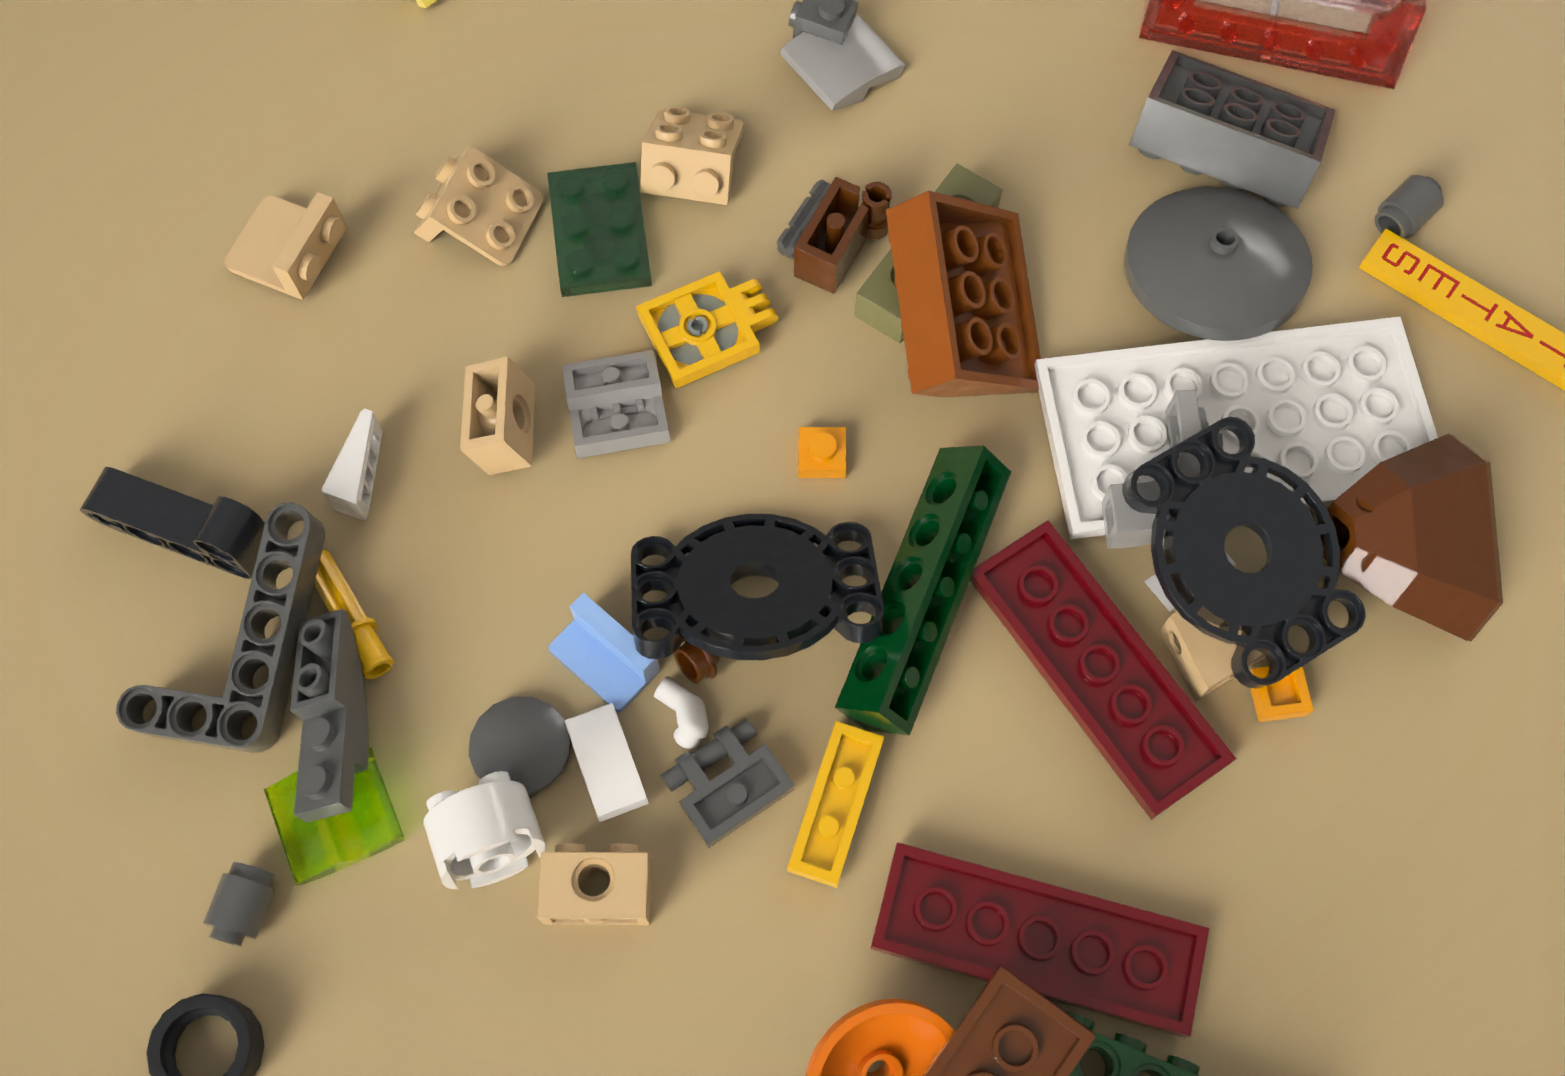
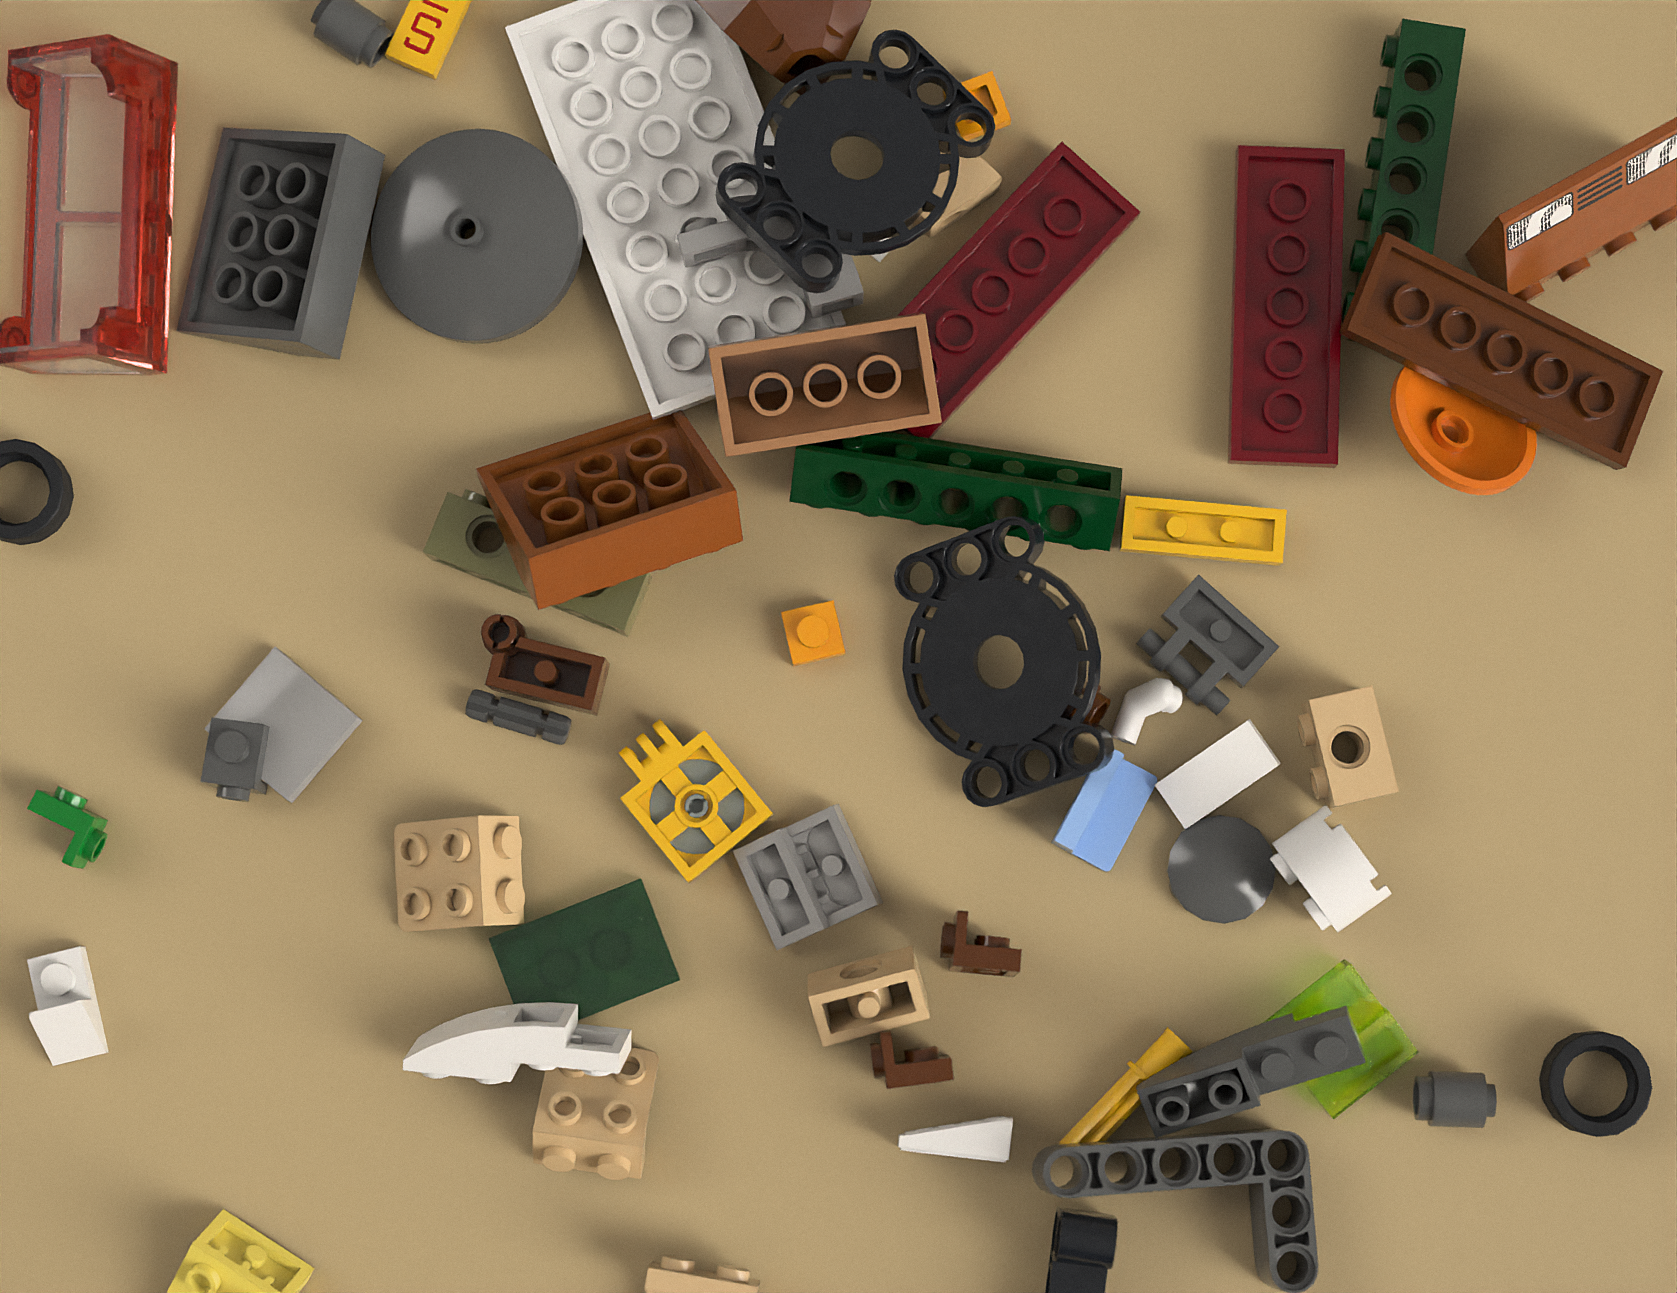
camera: 100 degrees left, 15 degrees up
(425, 426) = (920, 1064): none -> reddish brown bracket
(501, 499) = (987, 956): none -> reddish brown bracket
(546, 161) = (498, 1039): none -> white slope
(1038, 485) = (825, 384): none -> medium nougat slope

